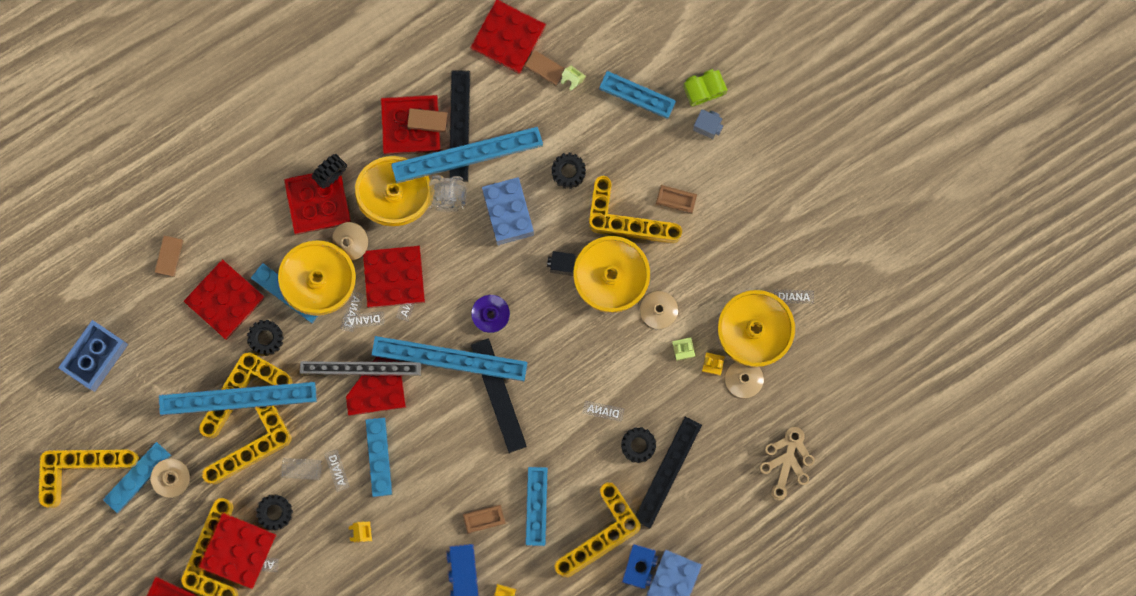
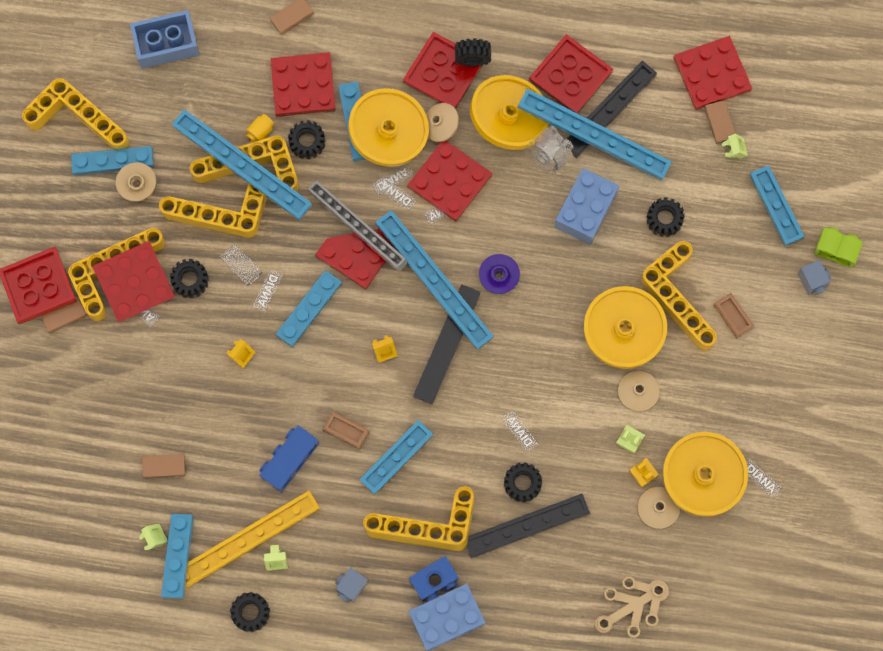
camera: 45 degrees right, 5 degrees down
(224, 360) = (259, 128): none -> yellow brick
(427, 120) = (587, 81): medium nougat tile -> none
(459, 438) = (384, 349): none -> yellow tile
(561, 263) = (592, 283): black brick -> none

